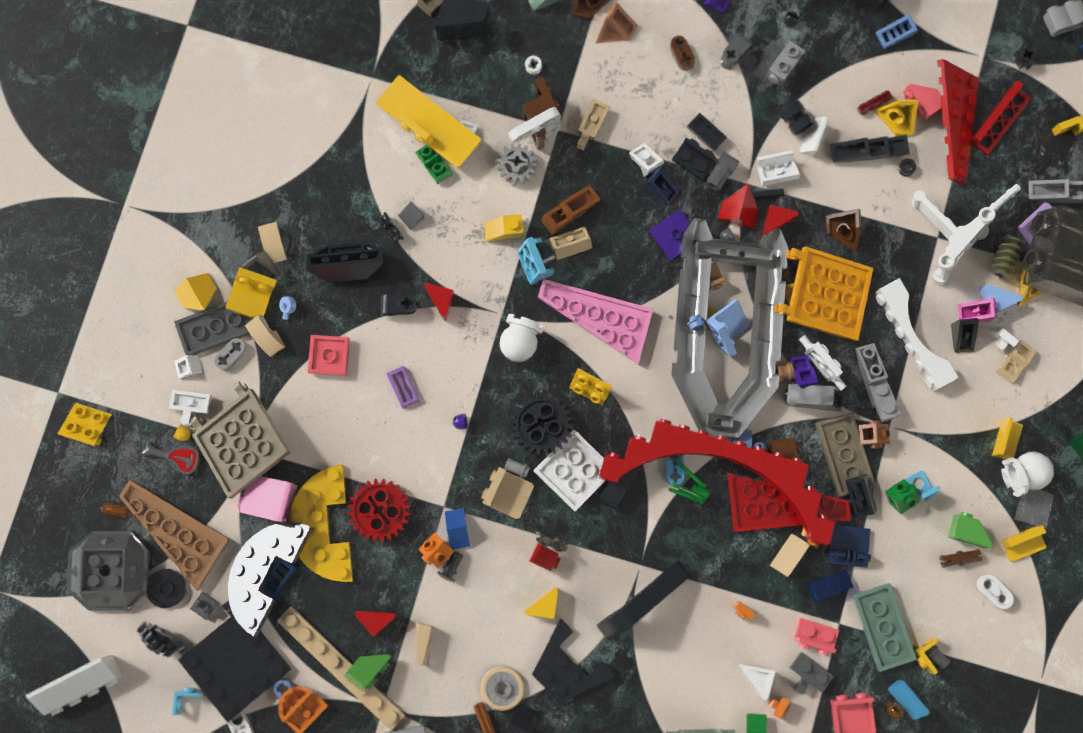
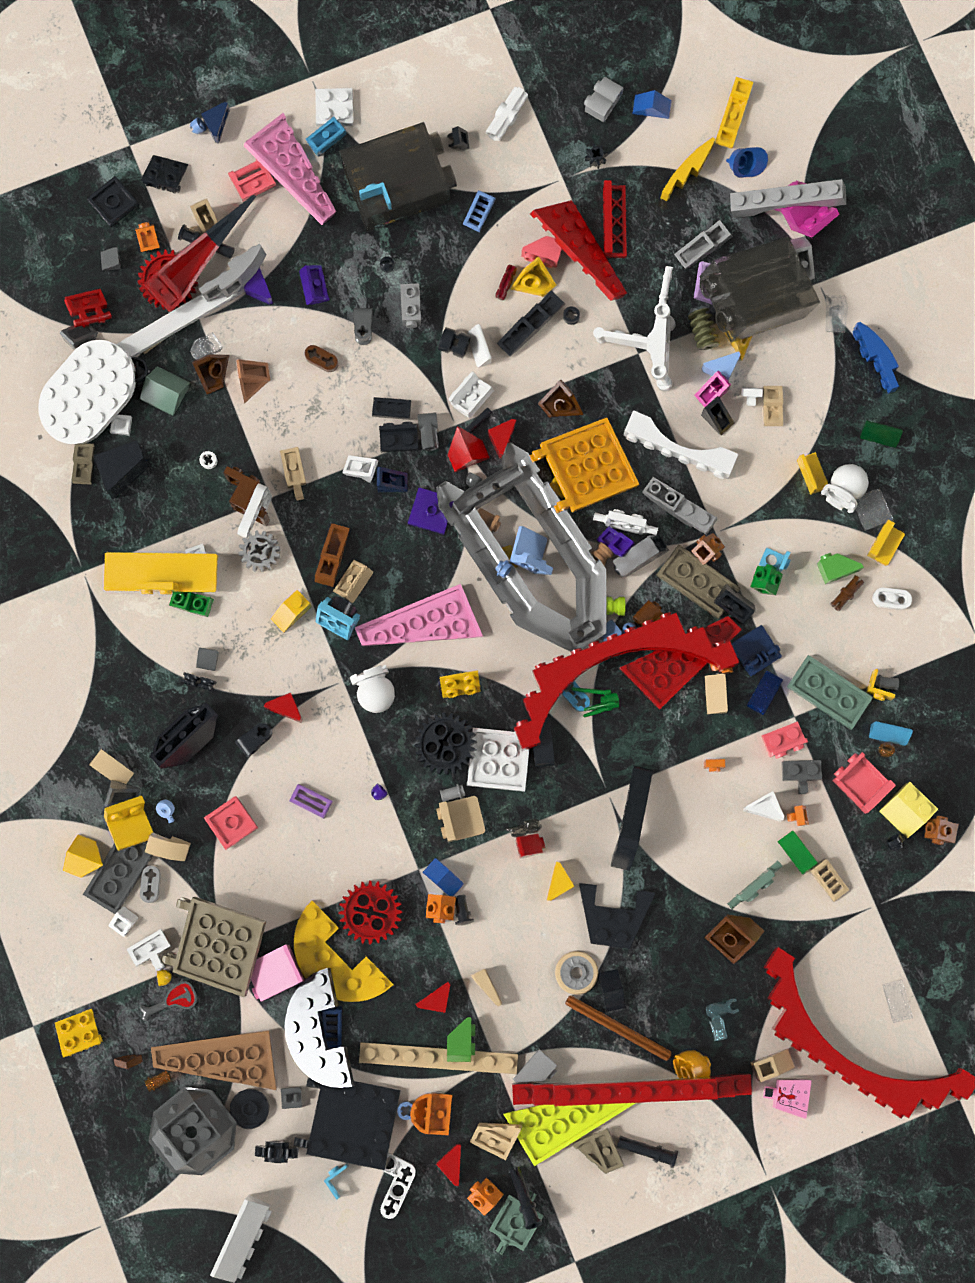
camera: 40 degrees left, 0 degrees up
(105, 477) = (128, 1061): none -> reddish brown tile
(764, 422) = (616, 605): none -> lime wheel

